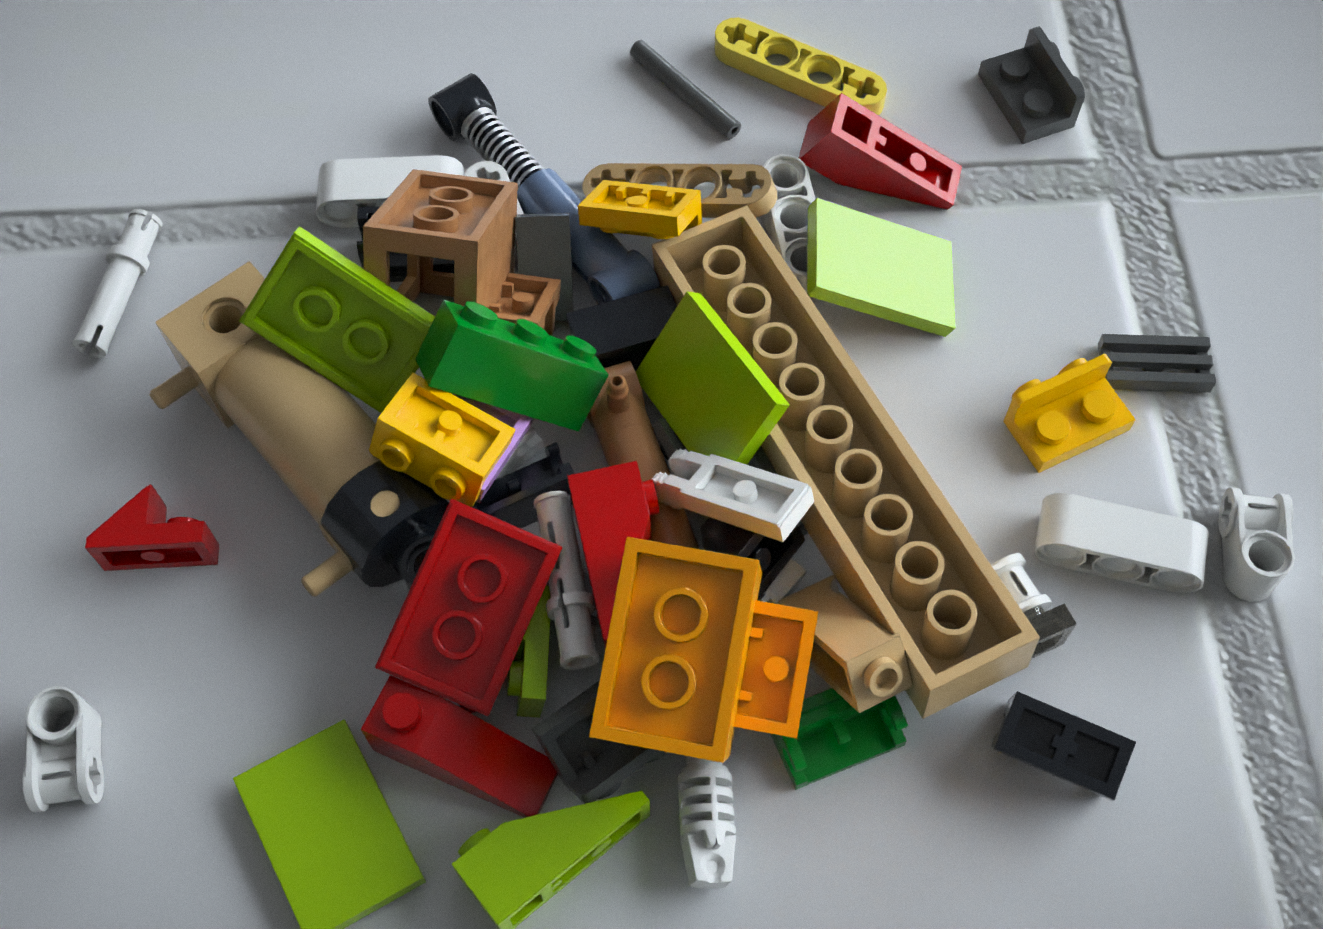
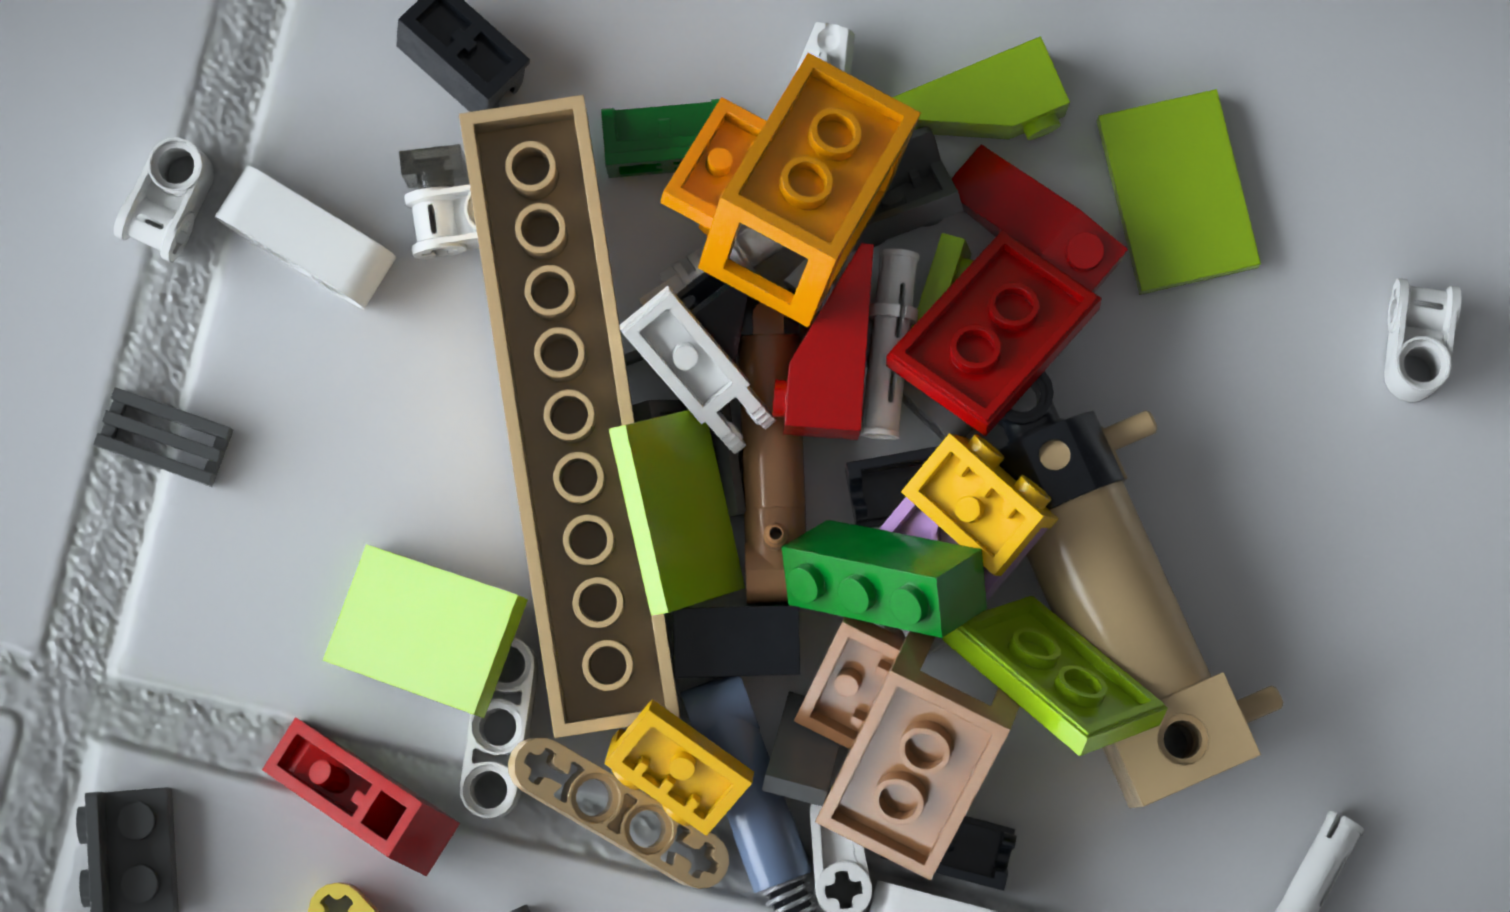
camera: 160 degrees left, 20 degrees up
(143, 540) = (1318, 546): red slope -> none
(851, 648) = (632, 191): tan window -> none
(1067, 413) = (288, 401): yellow bracket -> none

